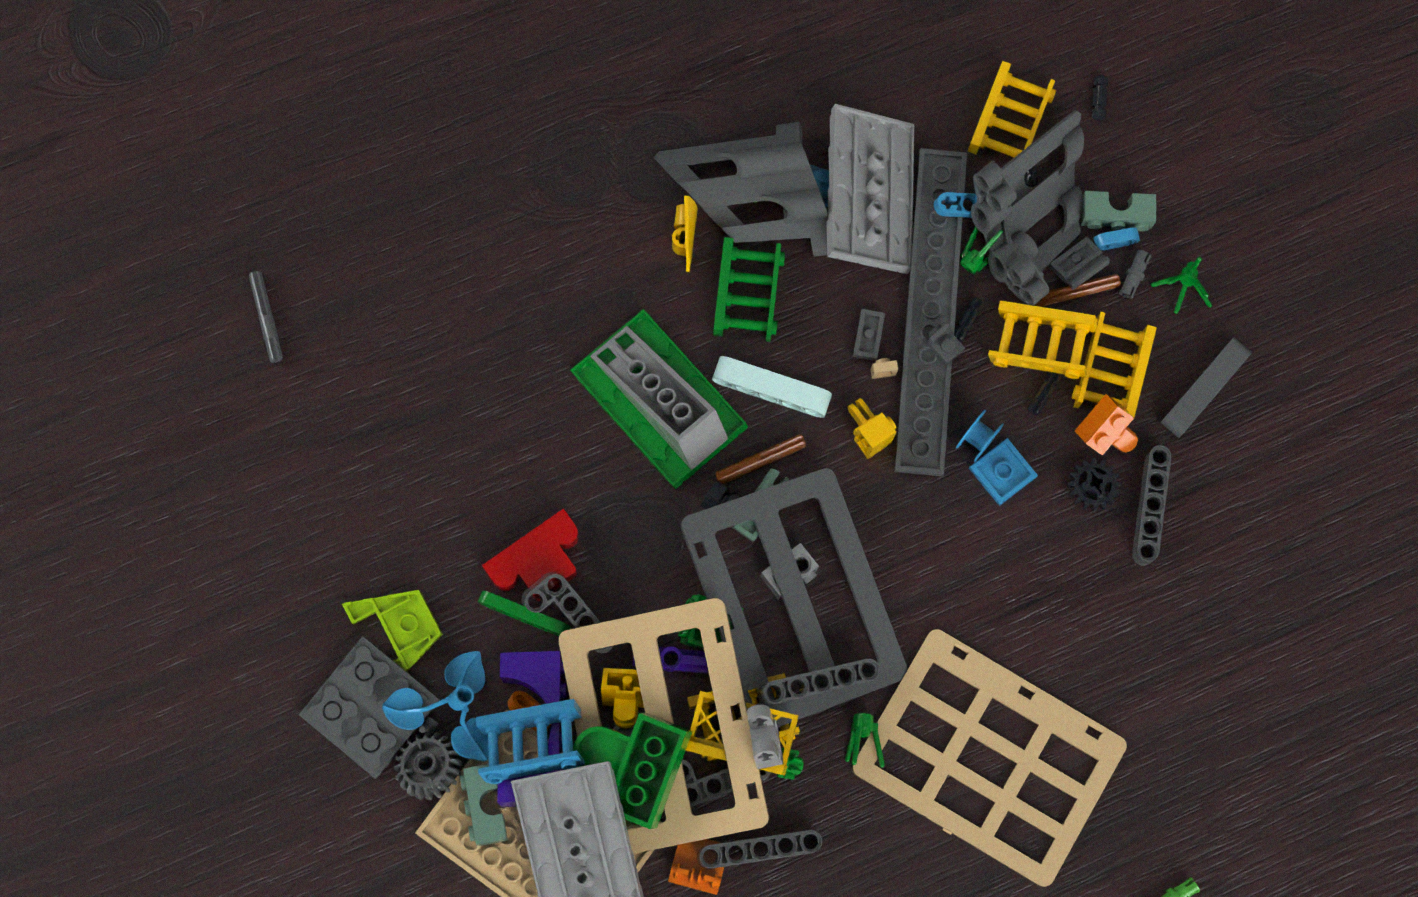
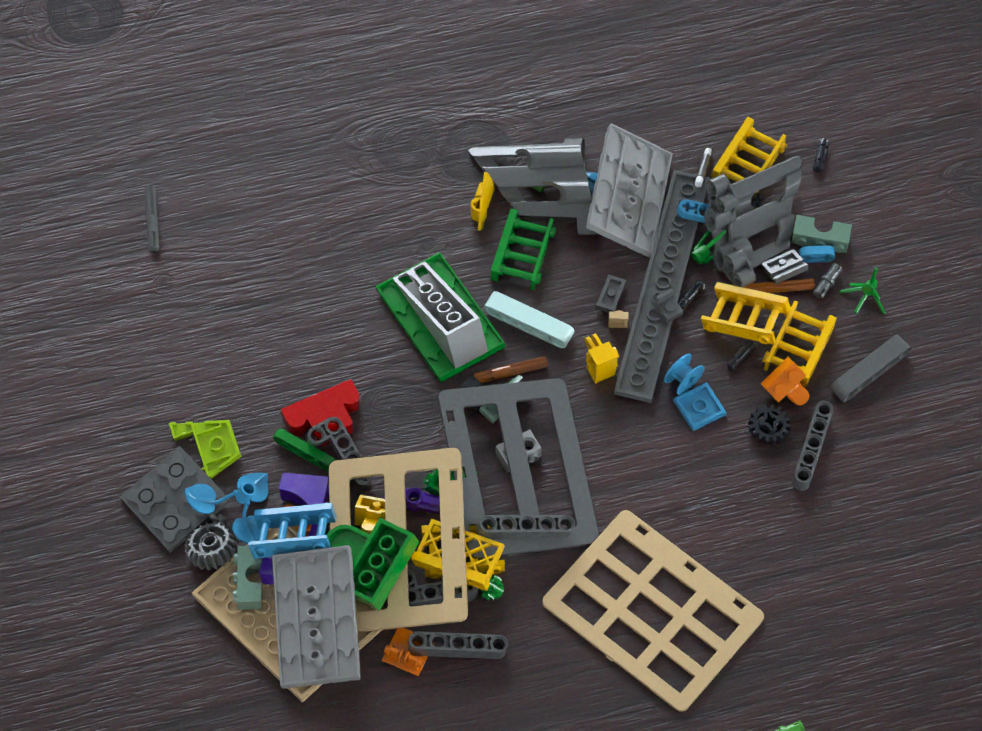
camera: 15 degrees right, 15 degrees down
(764, 737) = (474, 550): light grey piece -> none
(862, 727) = (555, 571): green plant -> none
(956, 140) = (703, 167): none -> bar

